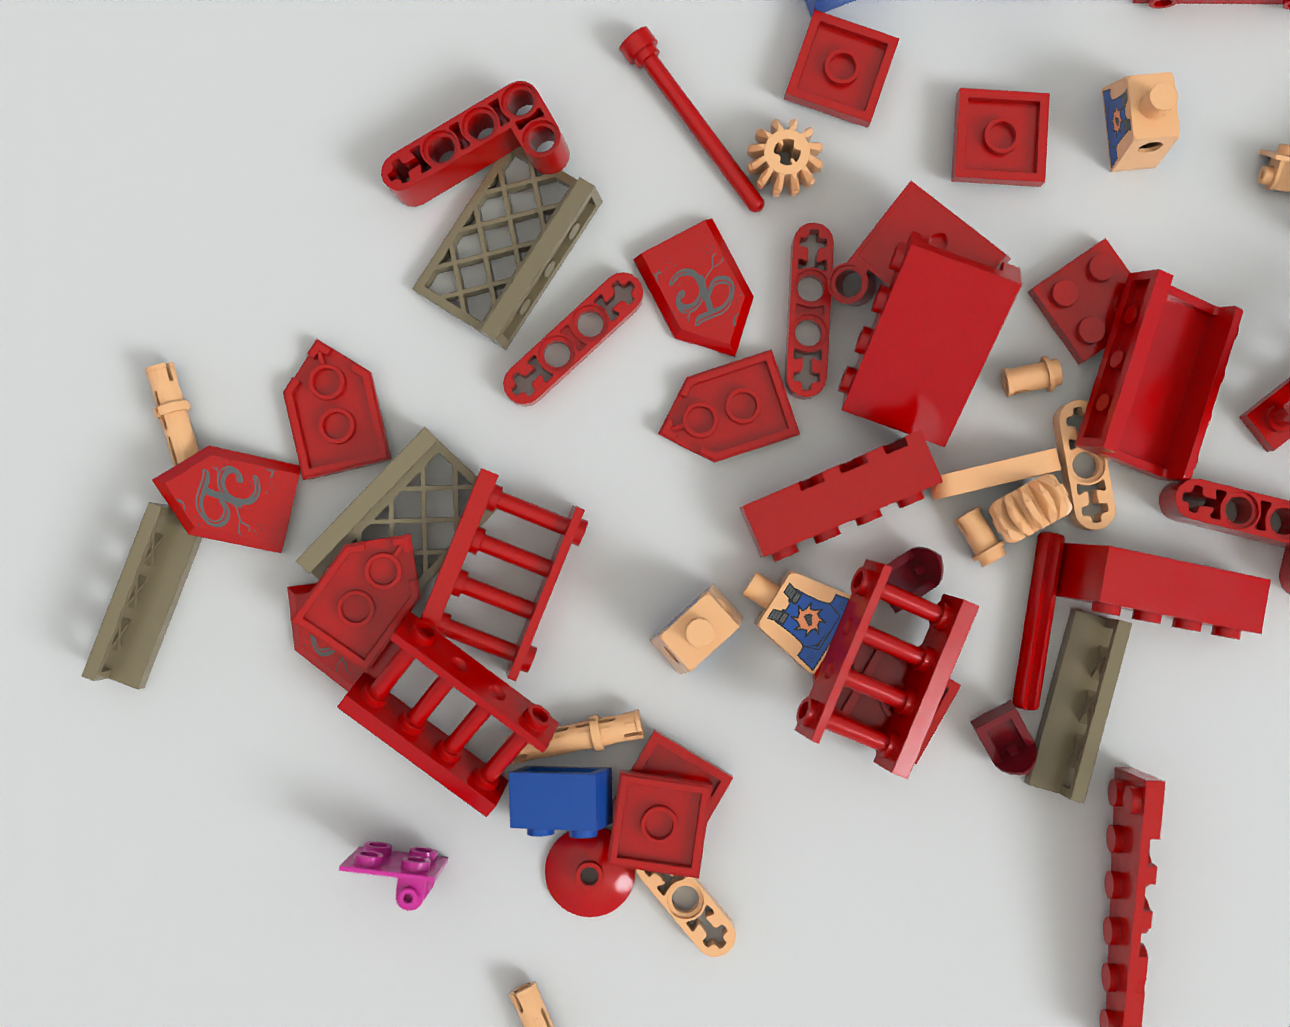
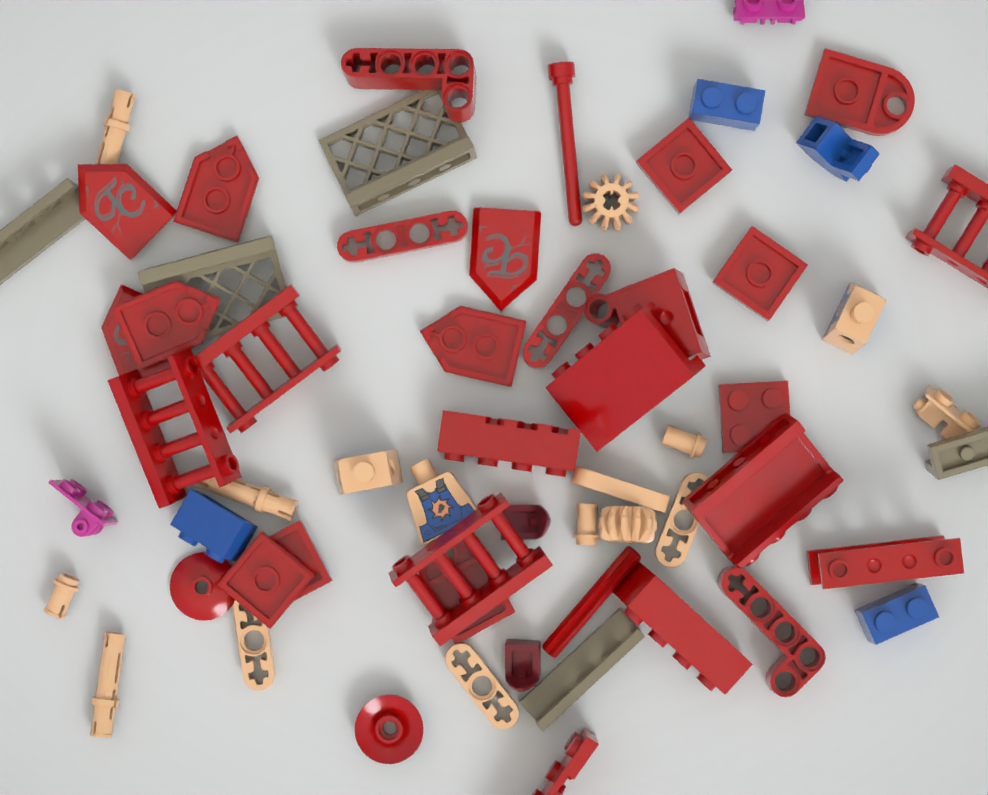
camera: 35 degrees right, 0 degrees up
(432, 970) = (61, 595): none -> light nougat pin
(914, 924) = (387, 747): none -> red dish
(1008, 791) = (491, 710): none -> light nougat beam

